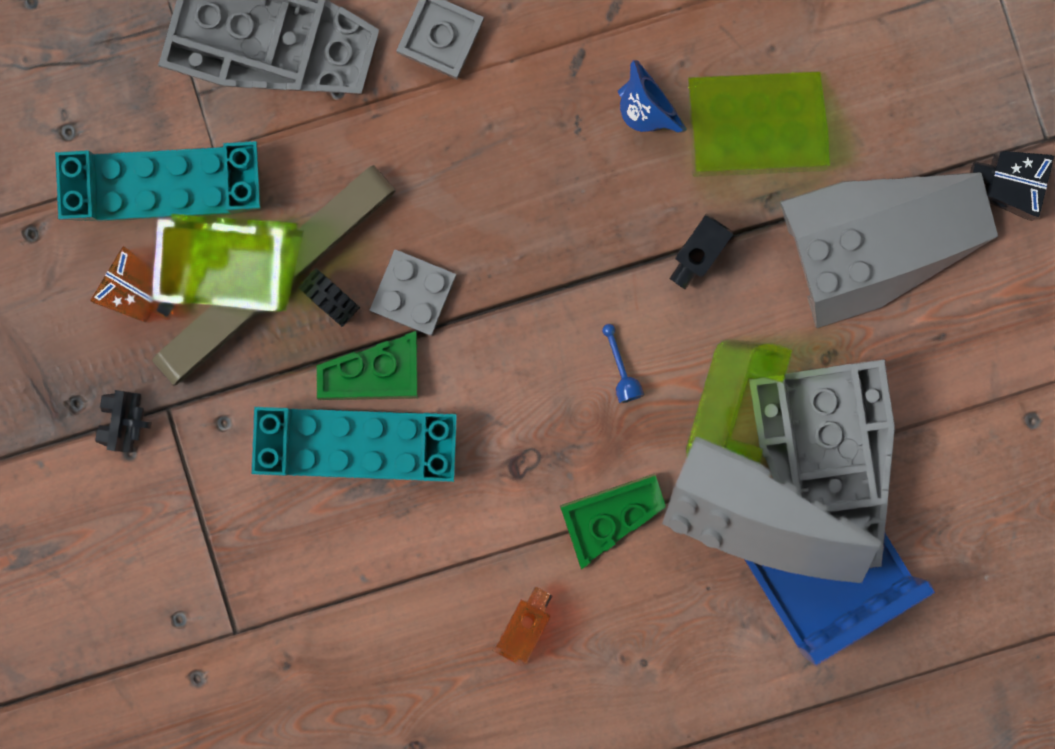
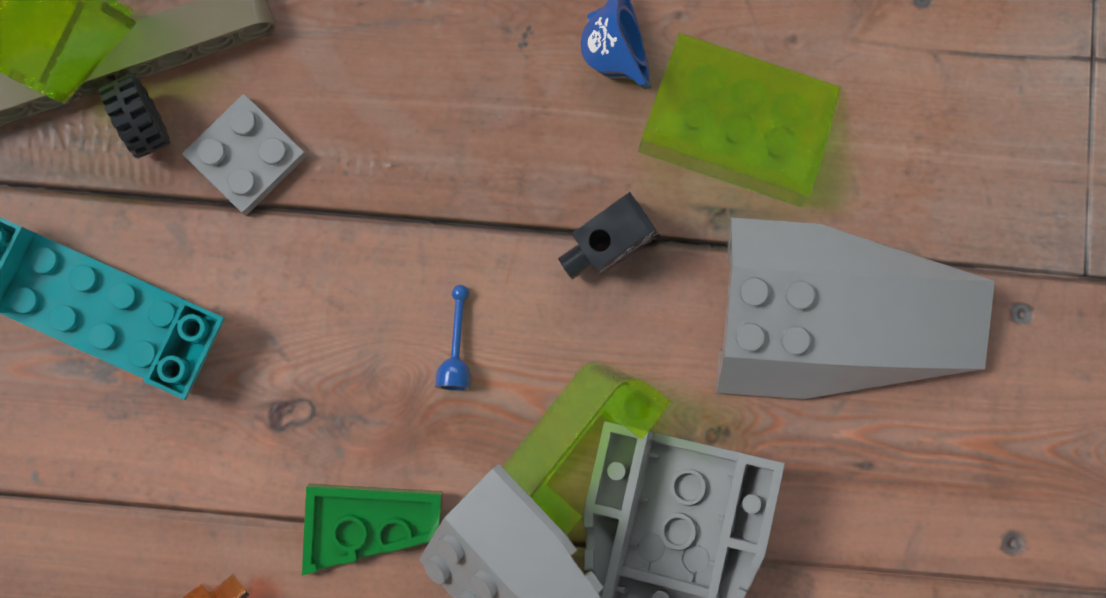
camera: 20 degrees right, 5 degrees down
(374, 373) = (153, 231): green wing -> none
(1016, 181) = (1034, 311): black torso -> none

